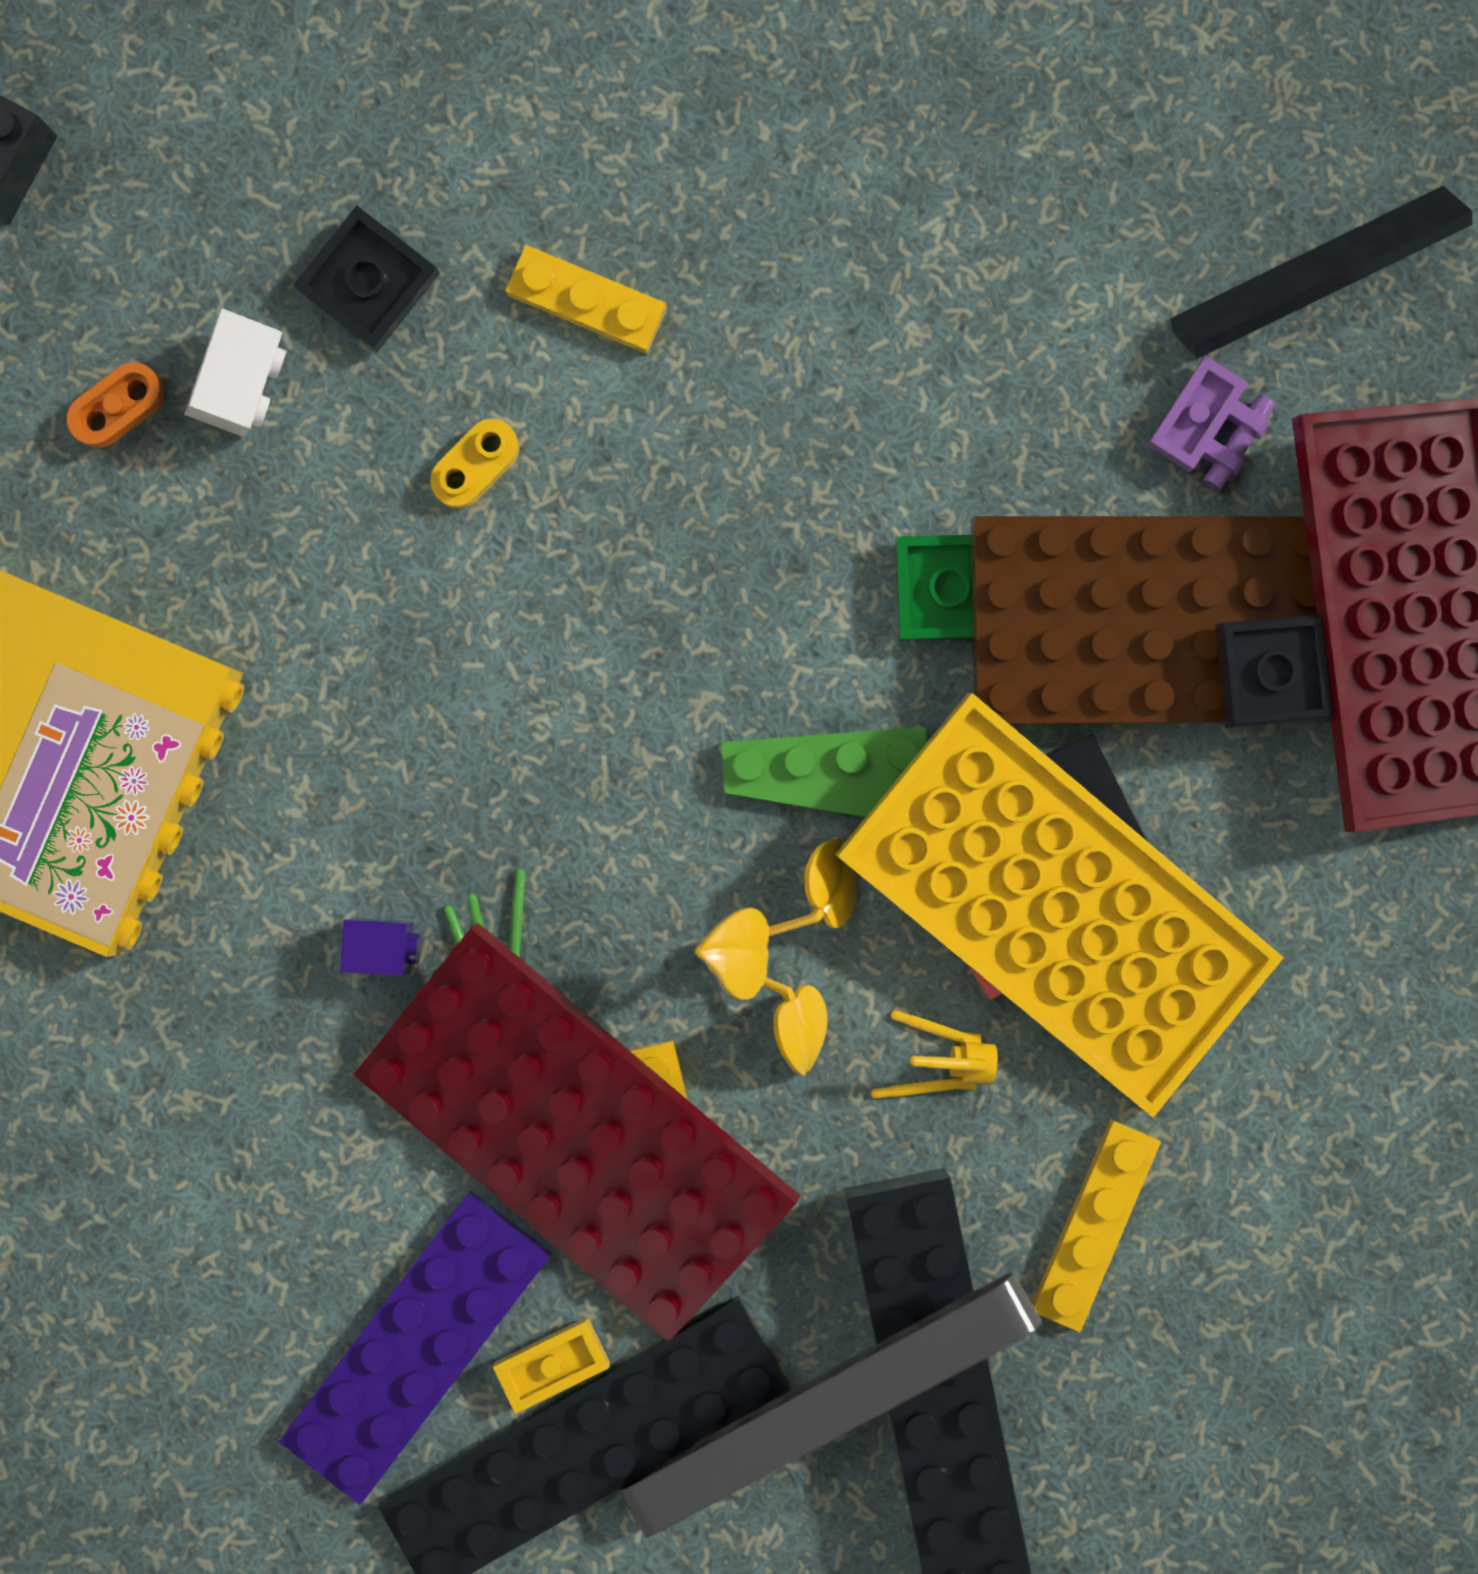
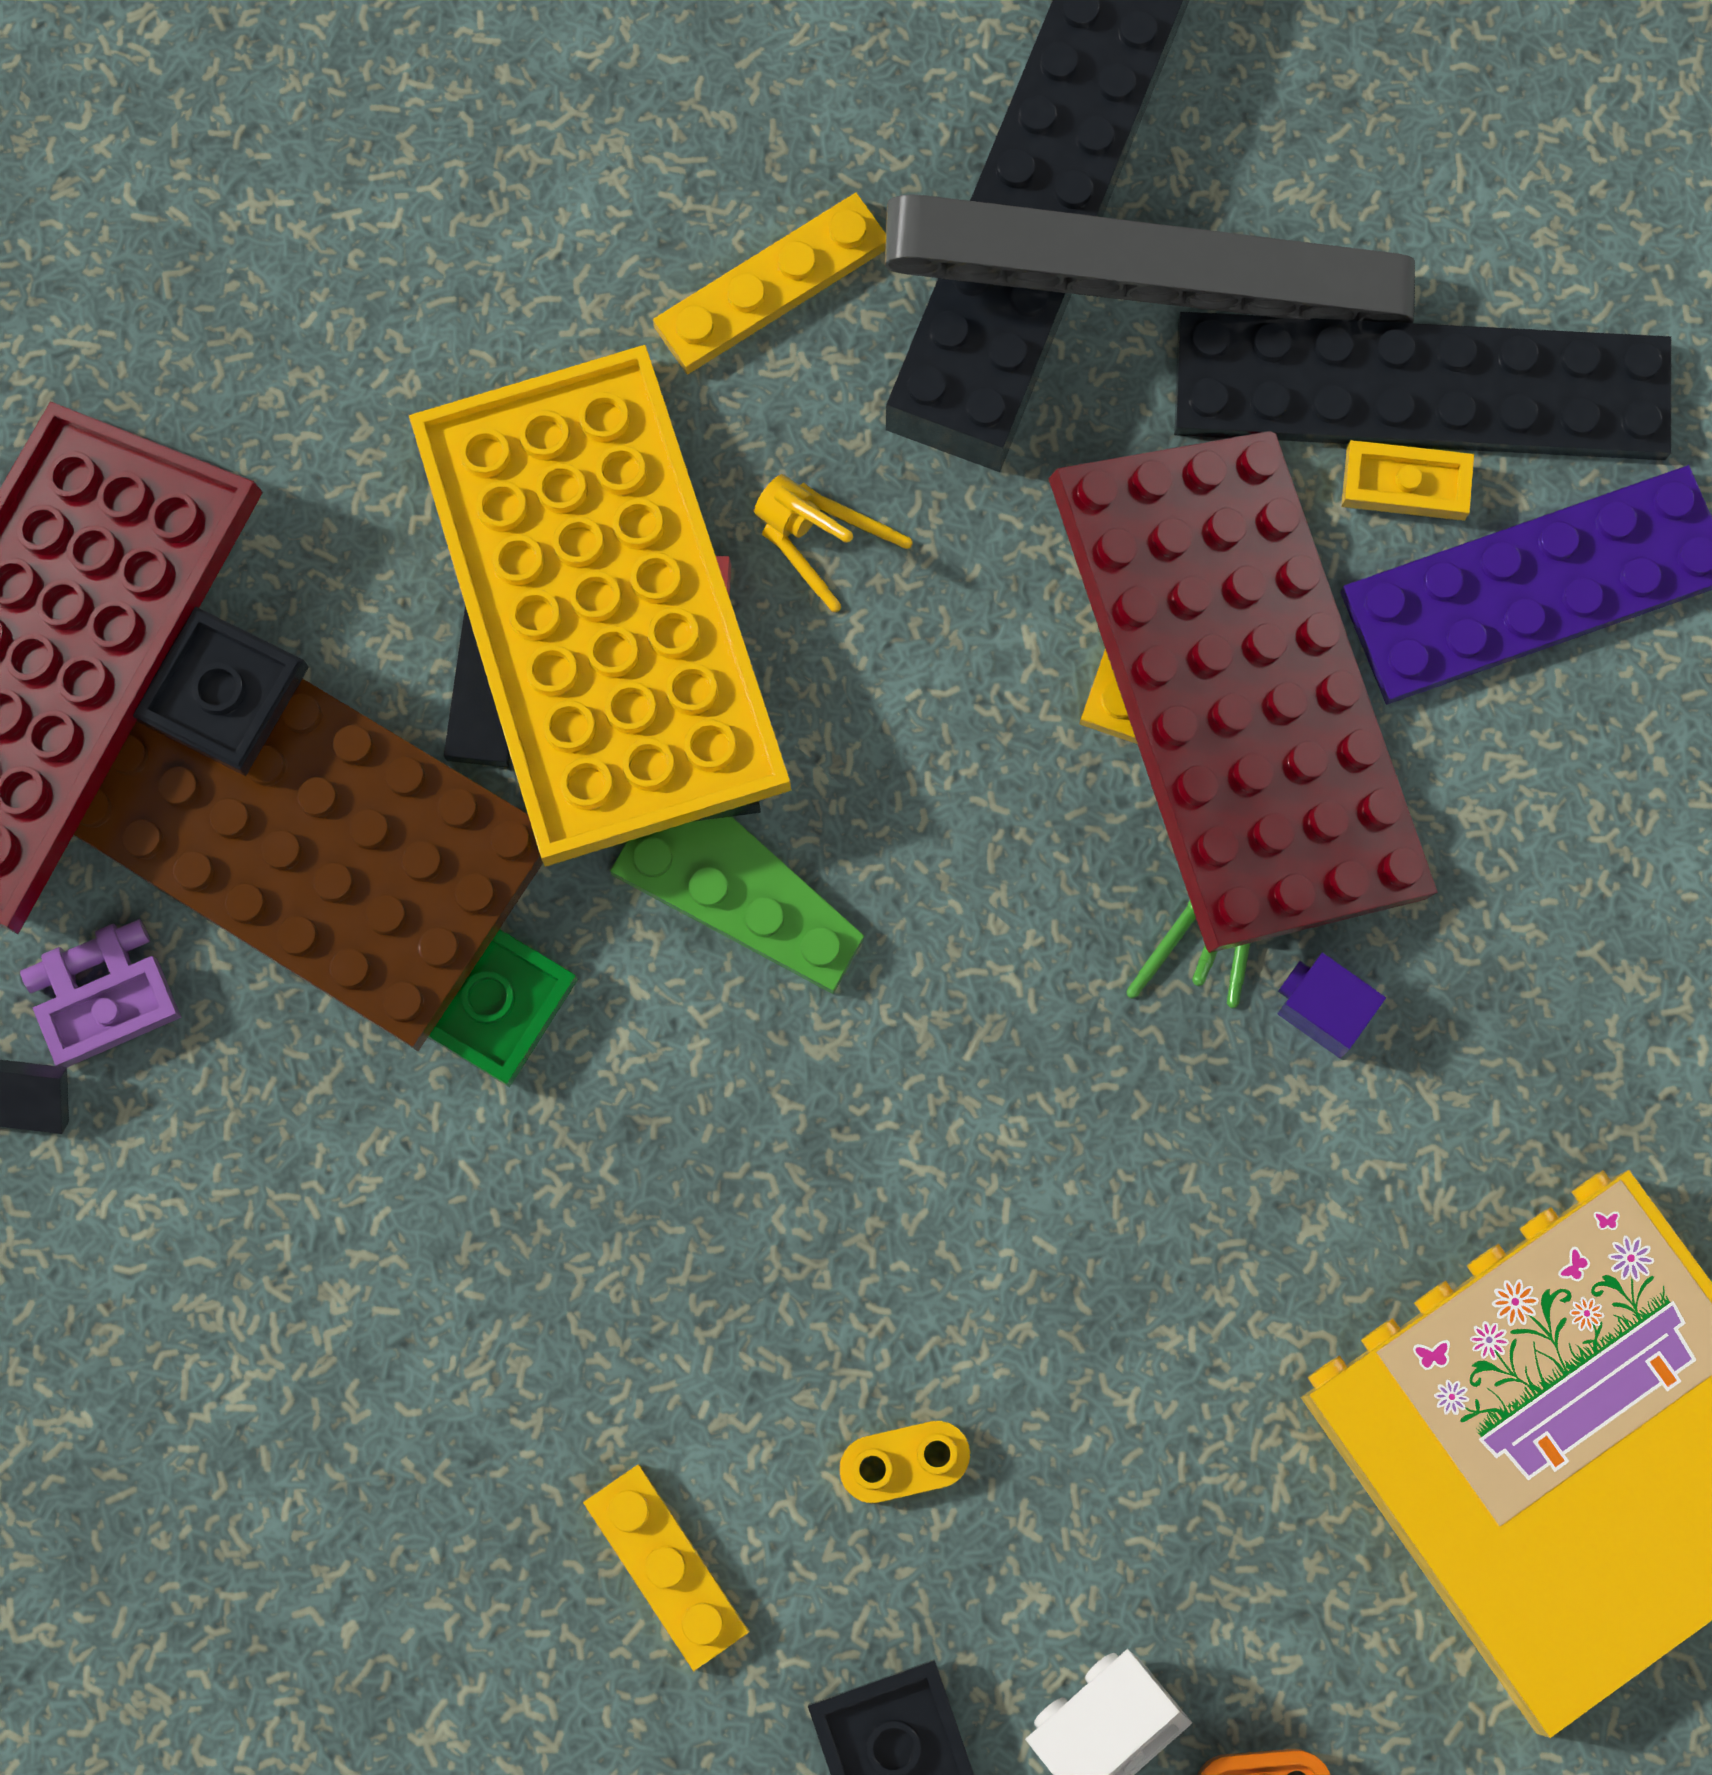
camera: 145 degrees left, 10 degrees down
(739, 955) = (953, 745): yellow plant -> none

